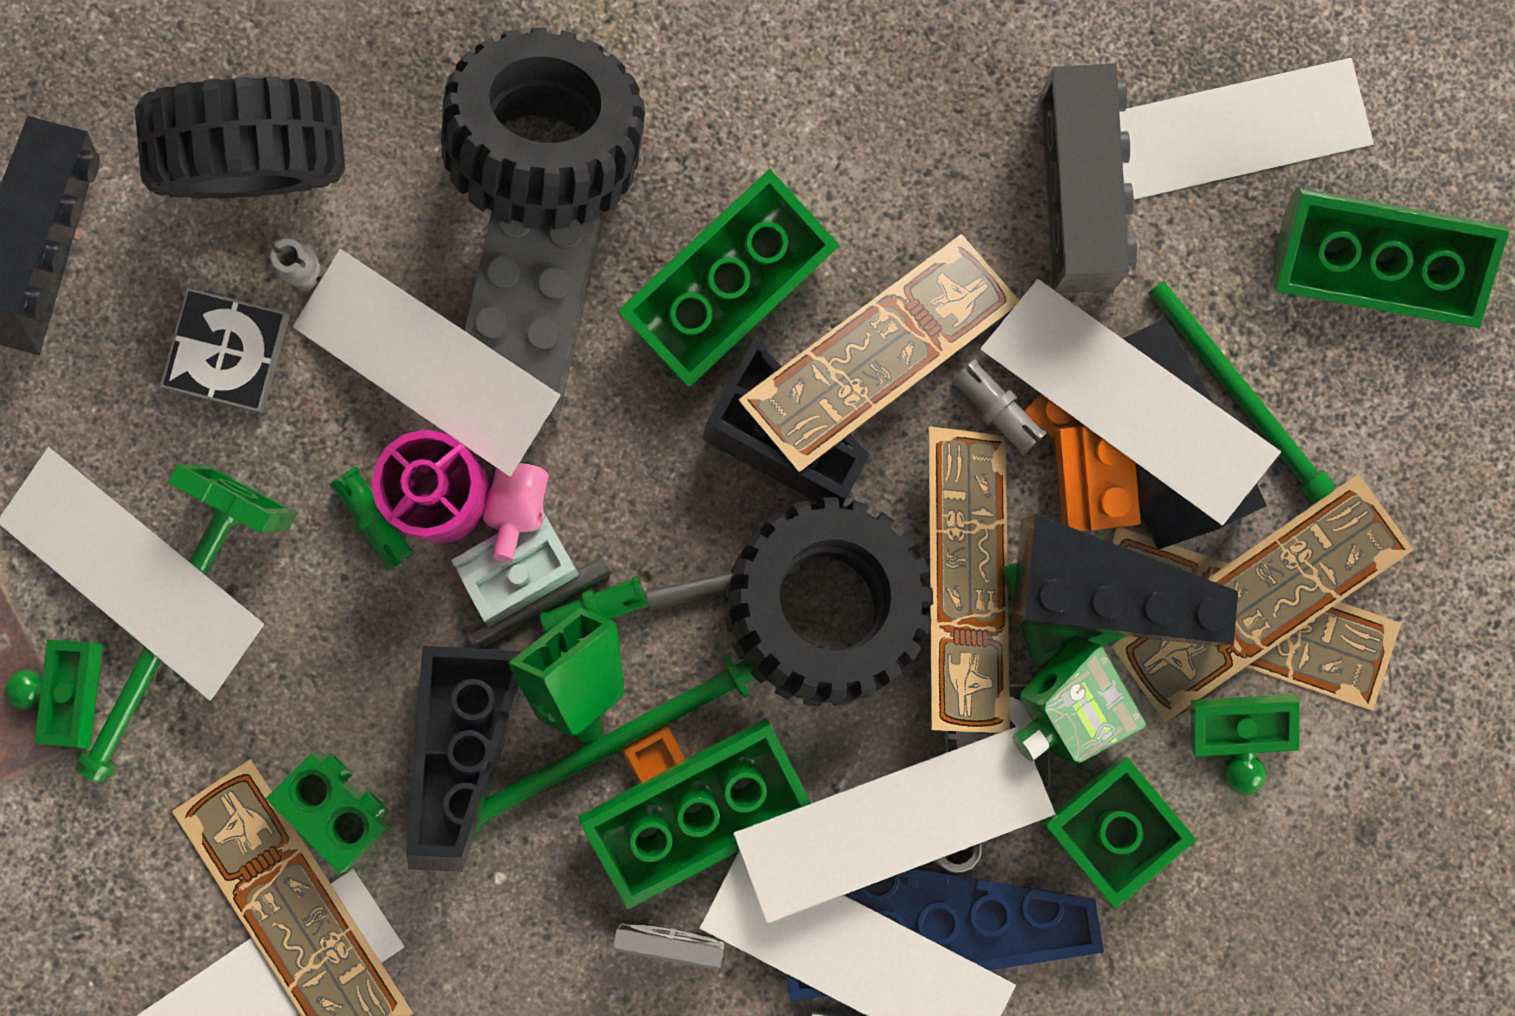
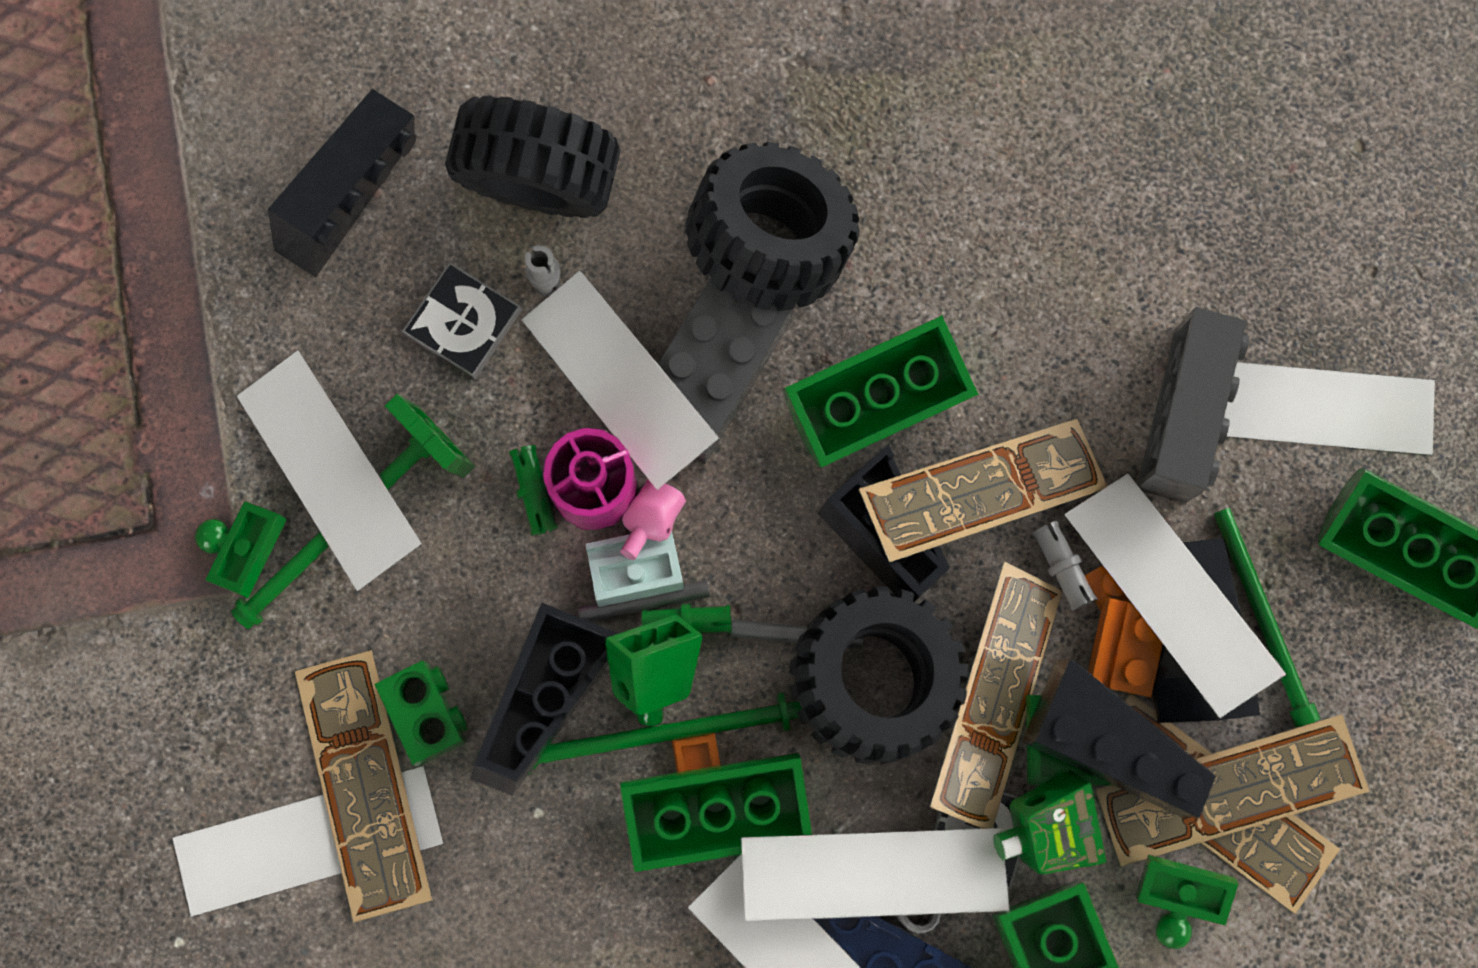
camera: 15 degrees right, 5 degrees down
(669, 944) = (660, 912): light grey tile -> none

